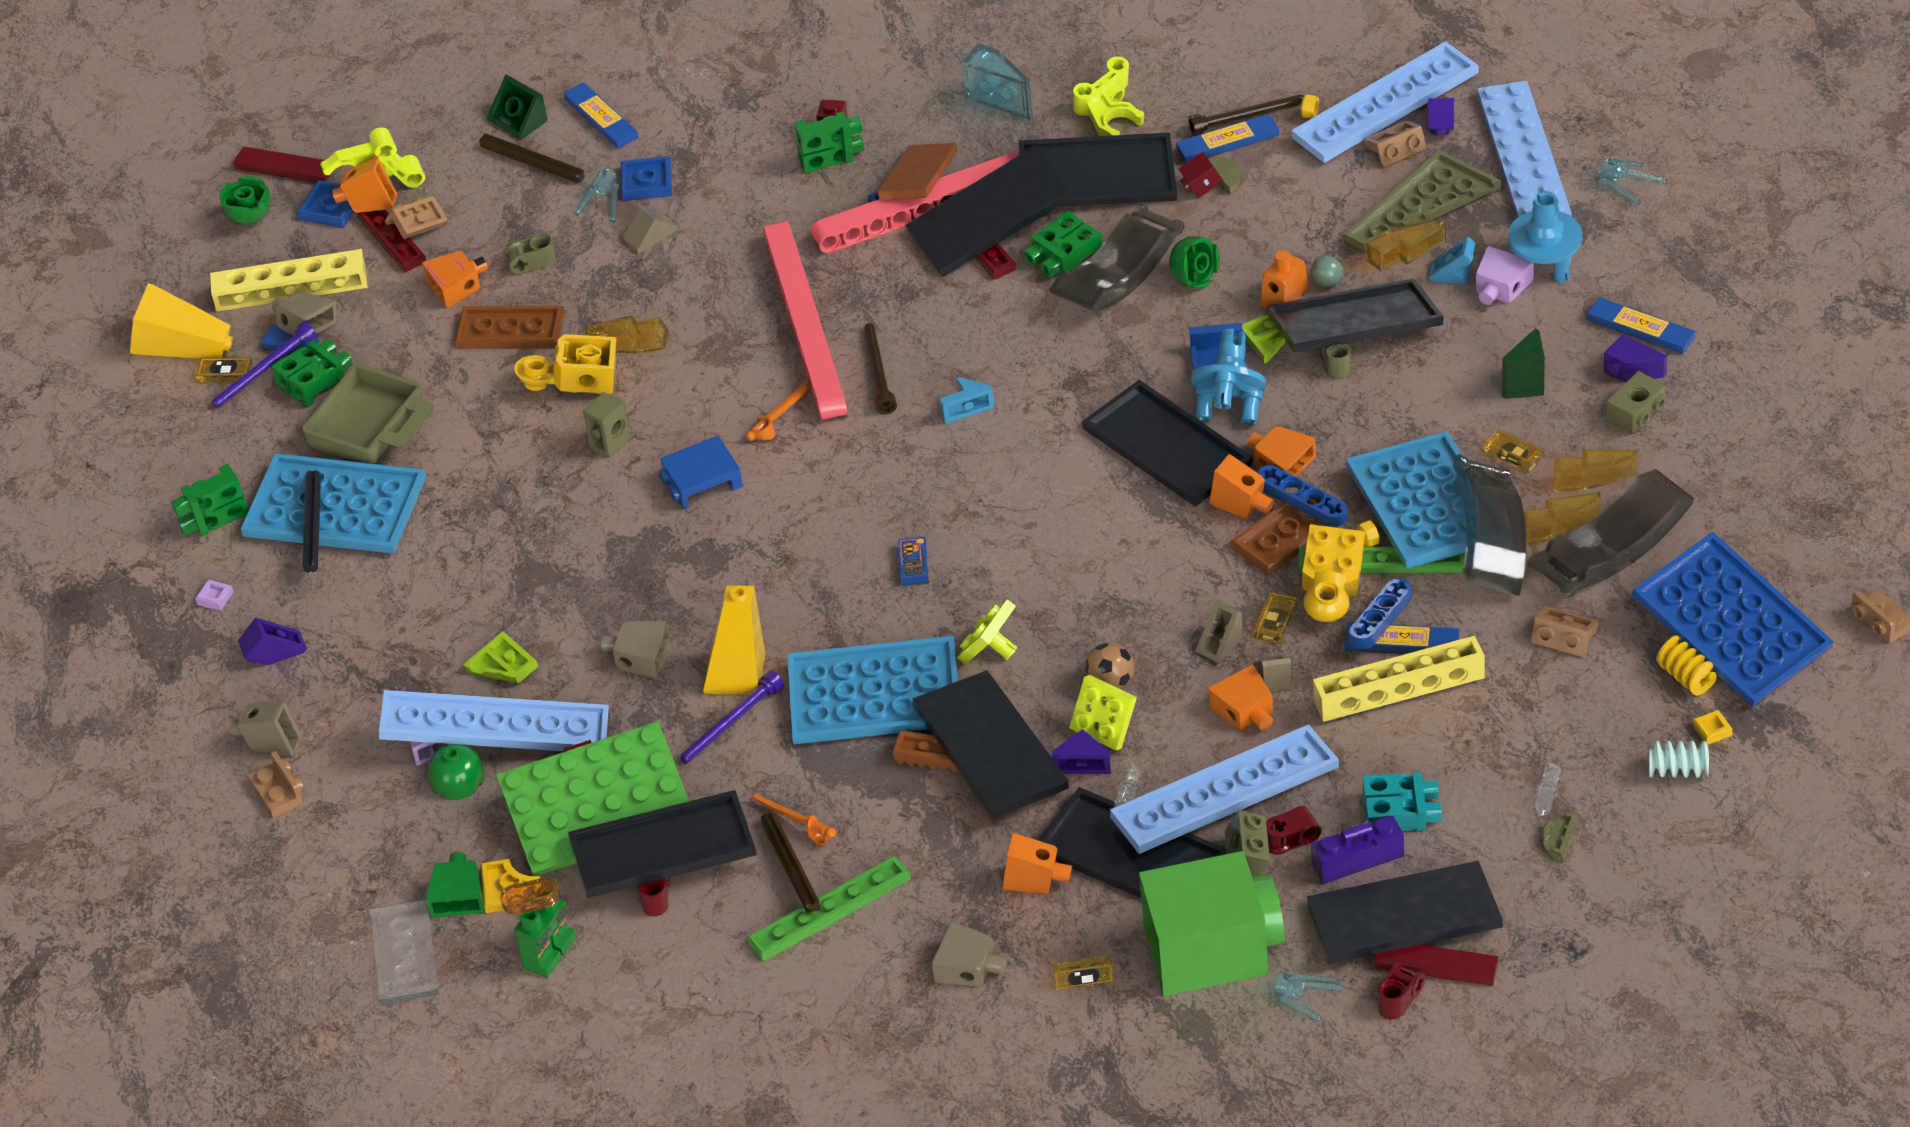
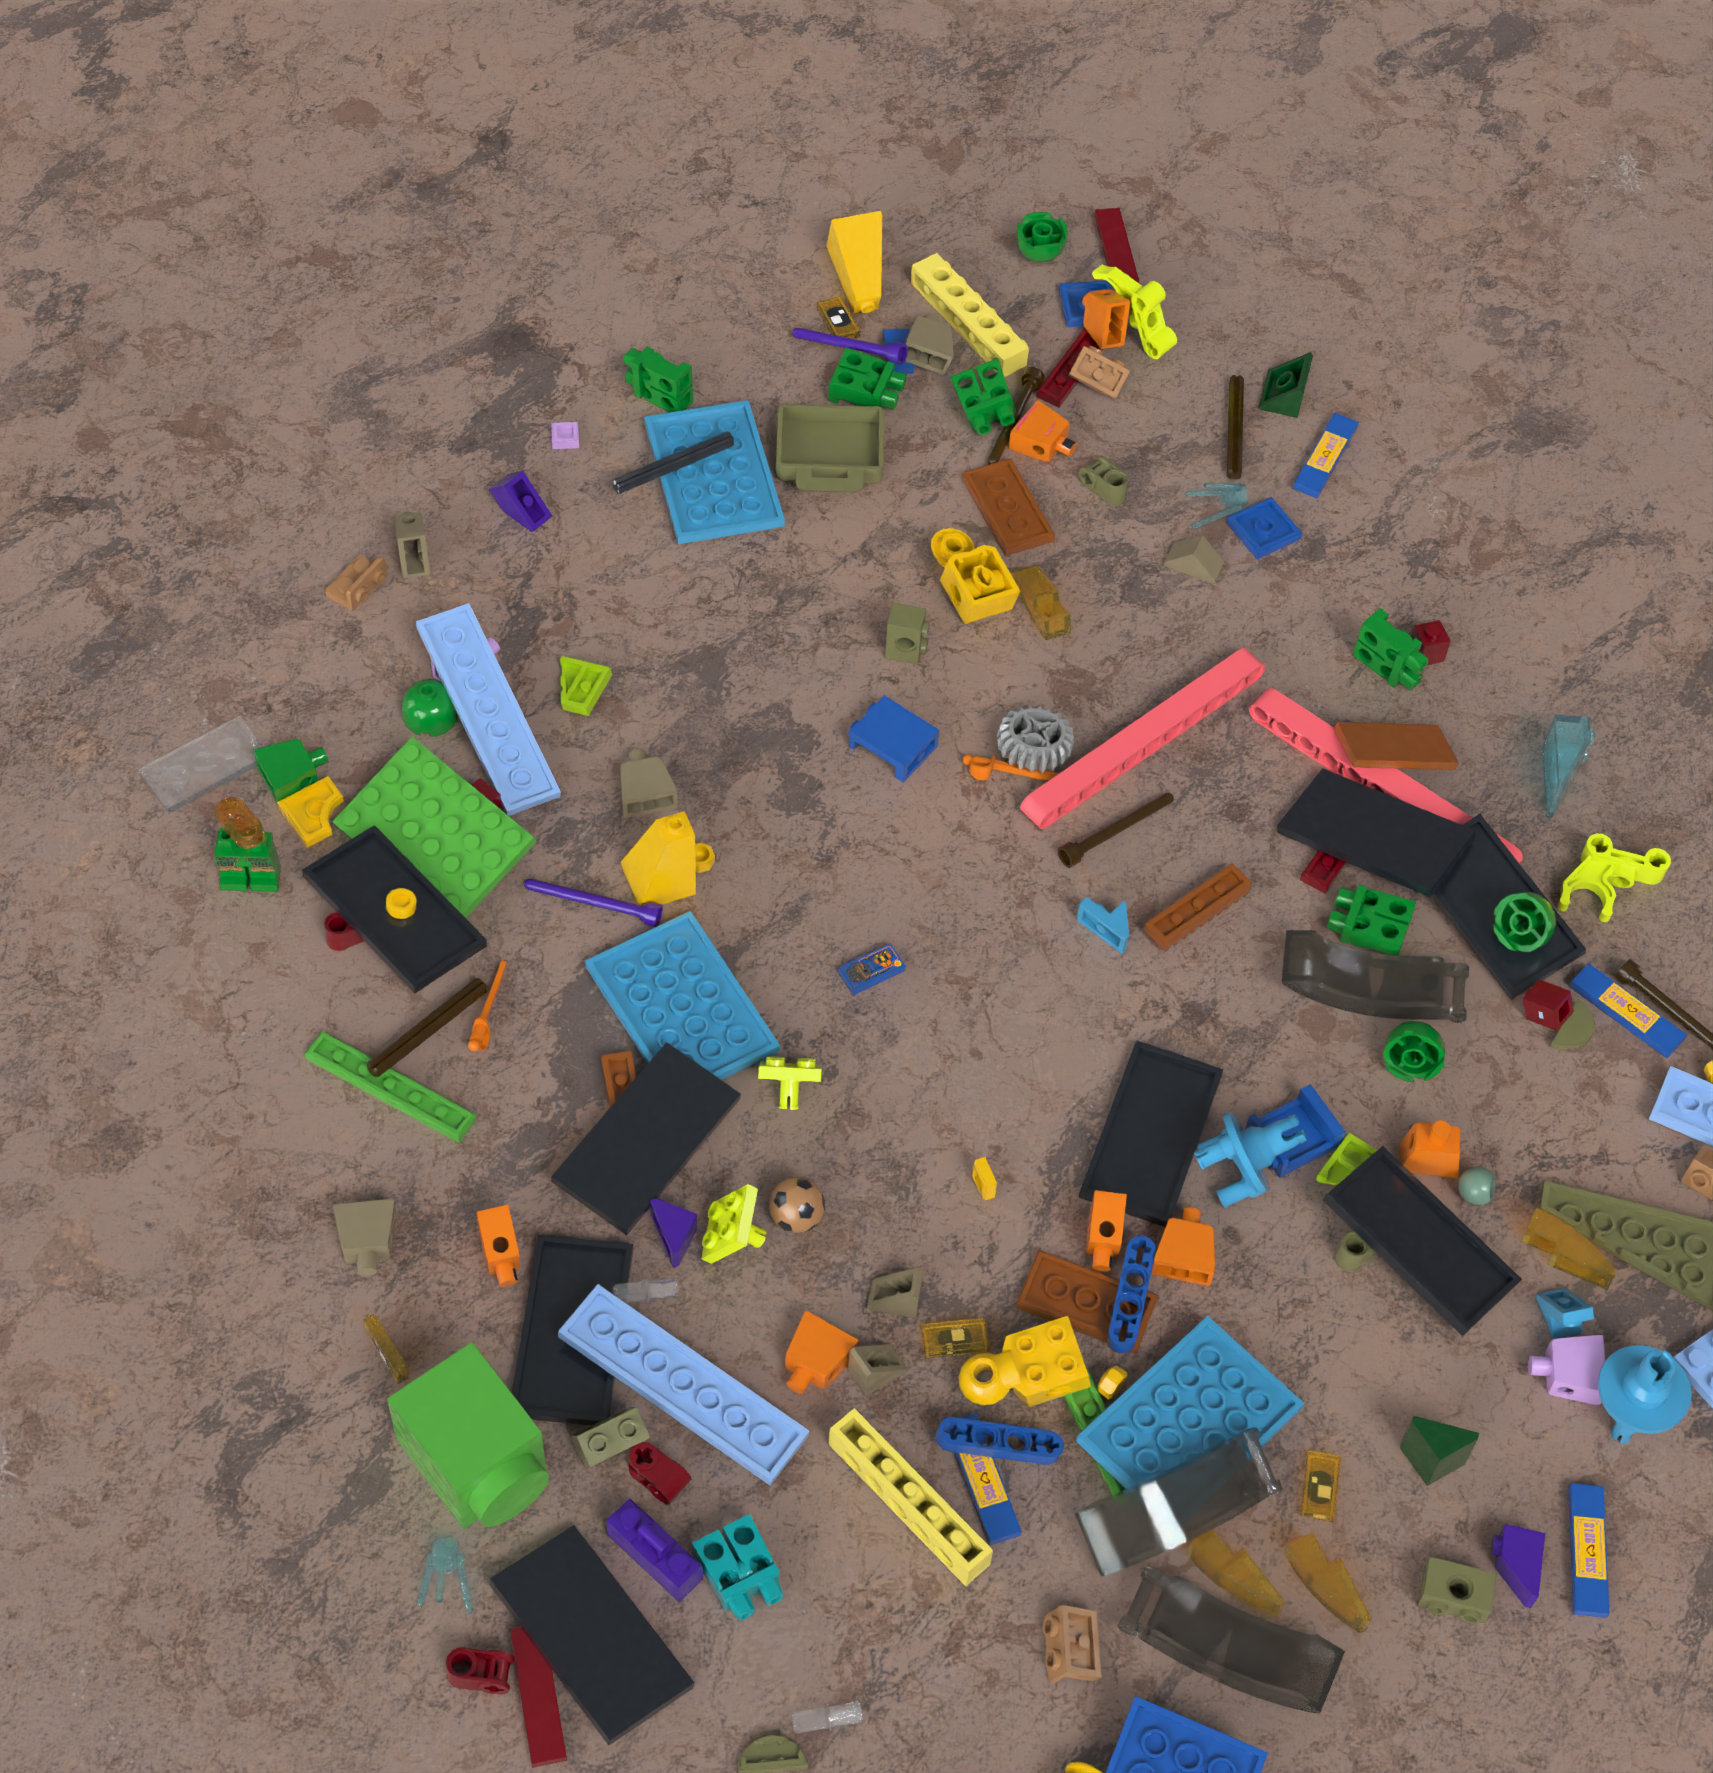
camera: 55 degrees right, 10 degrees up
(390, 265) = (1031, 380): none -> dark brown piece
(391, 296) = (985, 406): none -> green hips
(663, 834) = (401, 903): none -> yellow tile
(763, 383) = (1033, 745): none -> light grey gear
(985, 343) = (1198, 907): none -> dark orange gear
(1131, 149) = (1524, 921): none -> green cylinder
(1150, 550) = (984, 1179): none -> yellow tile

